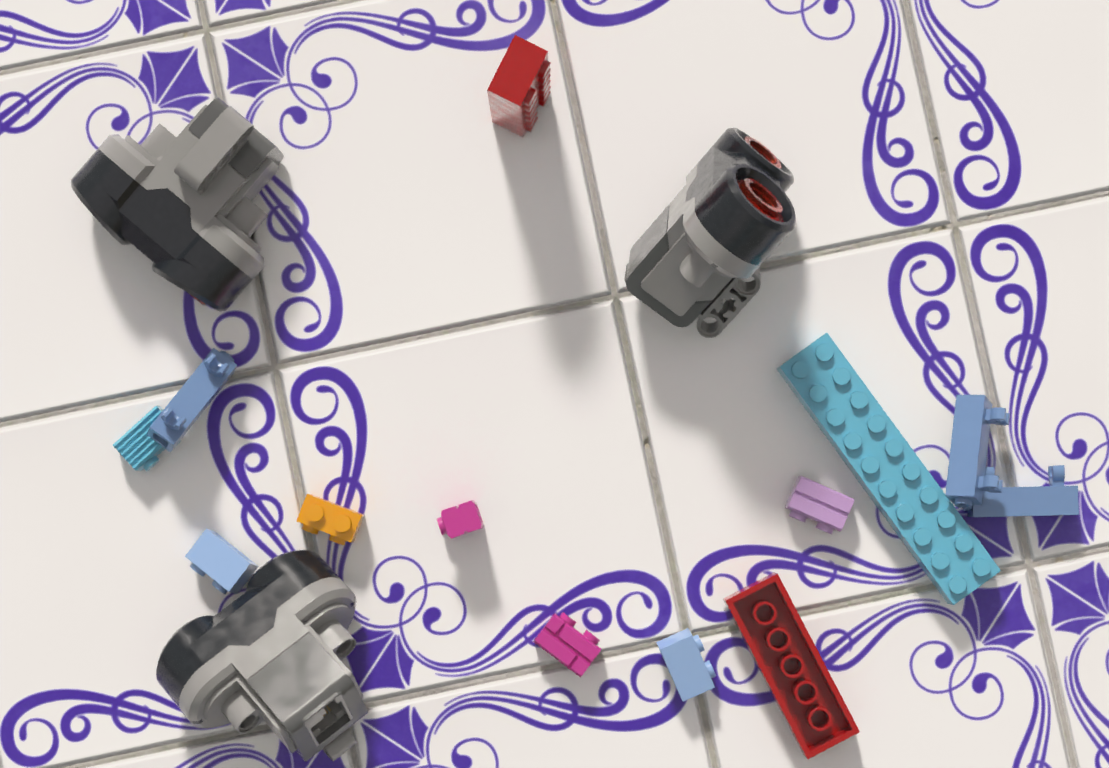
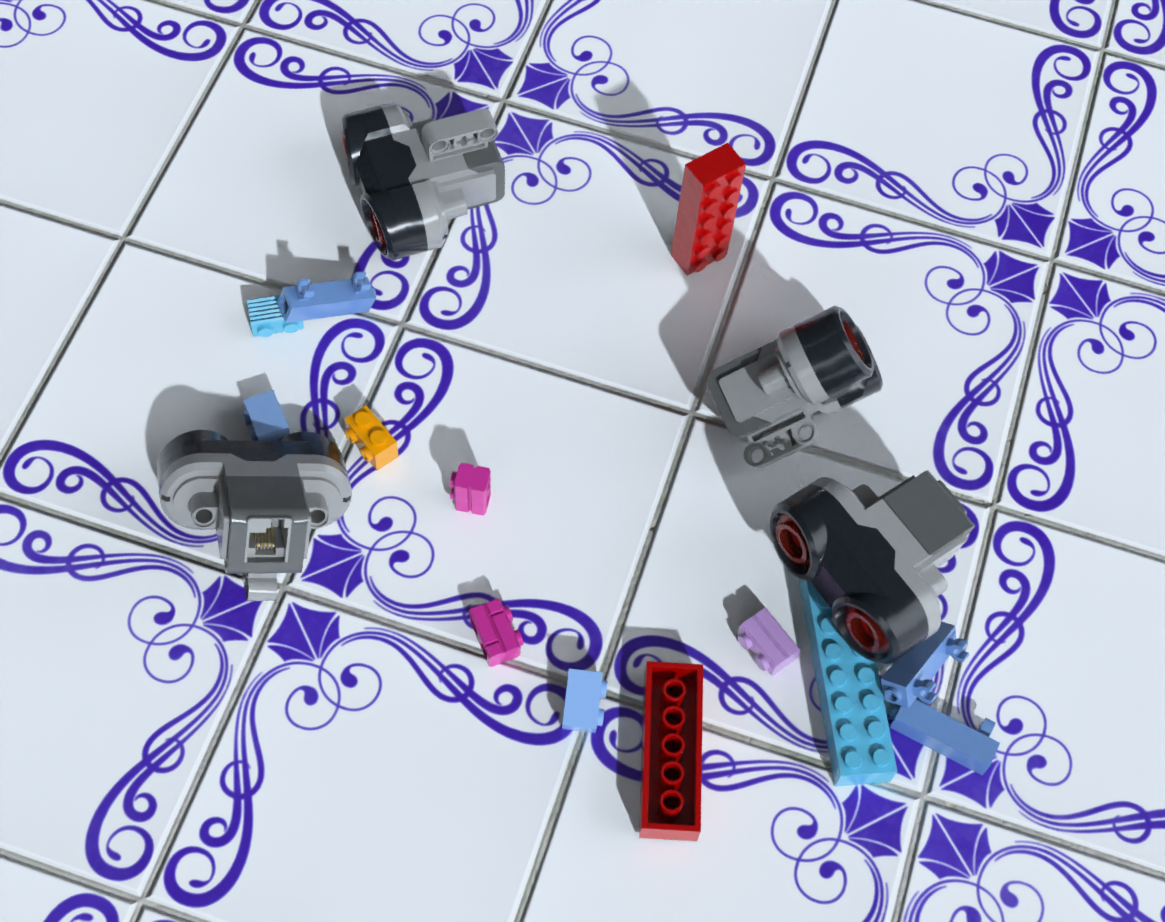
camera: 25 degrees right, 25 degrees down
(884, 385) = (874, 557): none -> piece

